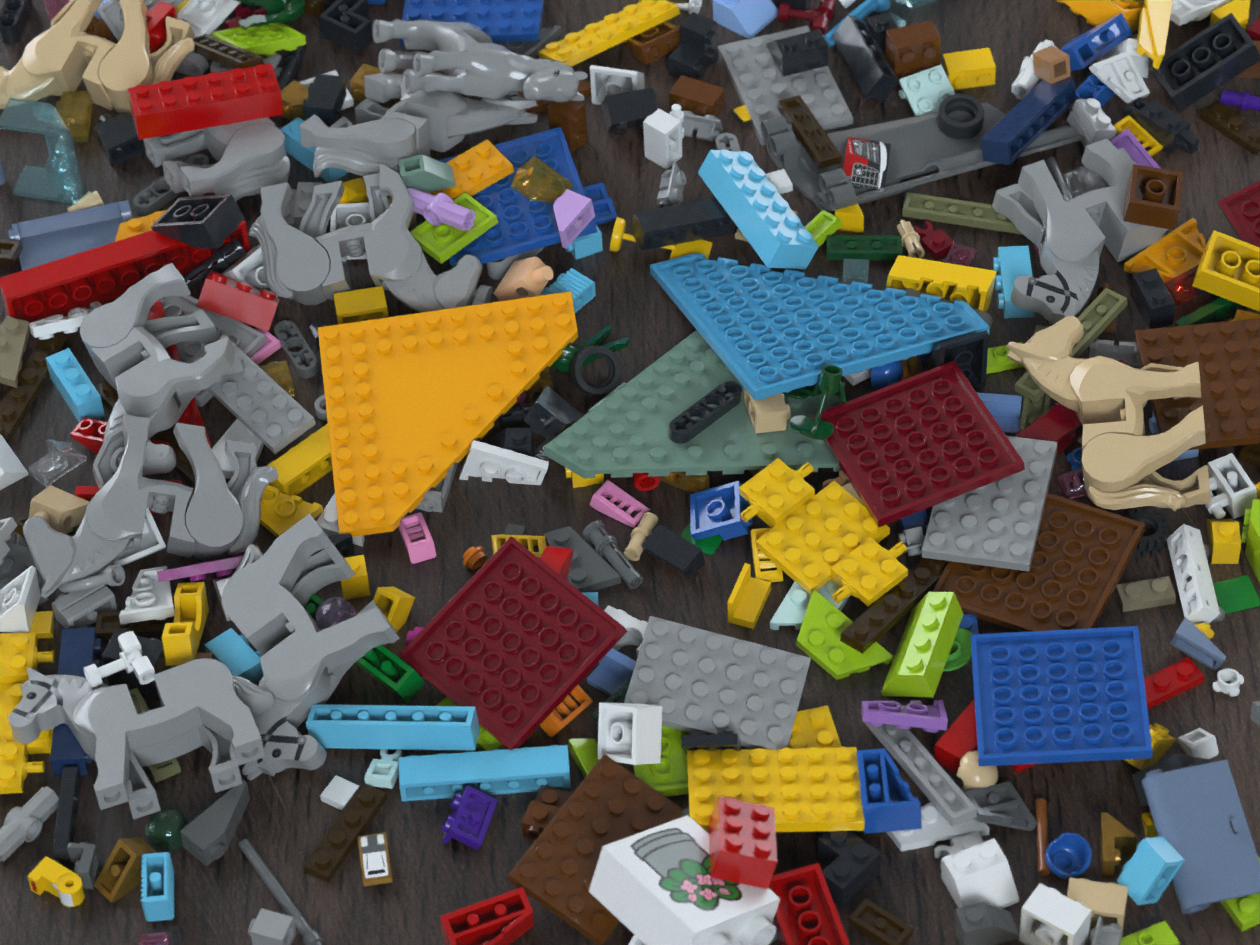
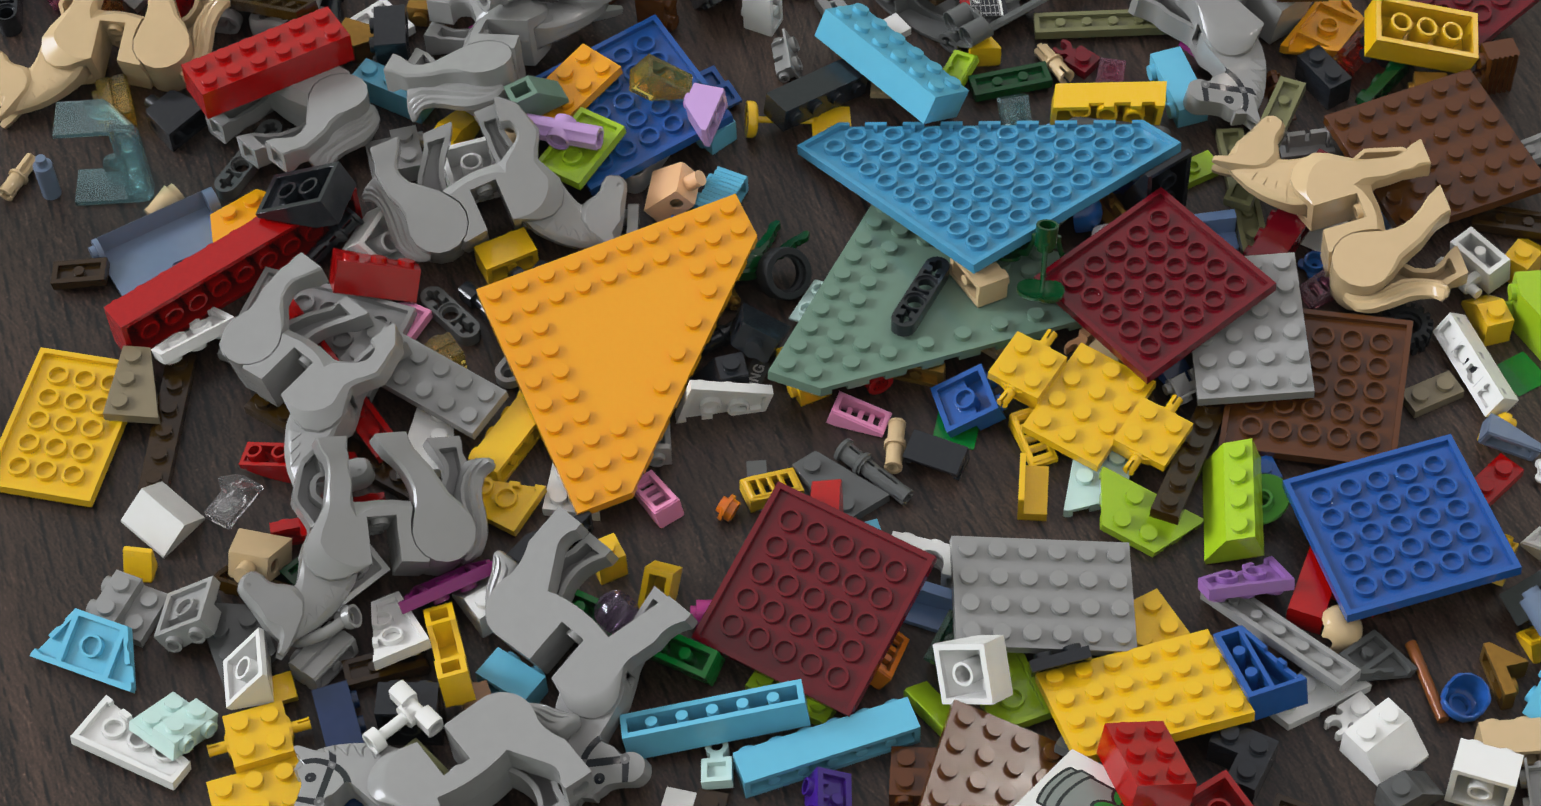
camera: 15 degrees left, 5 degrees up
(74, 386) = (225, 409): medium azure brick -> none

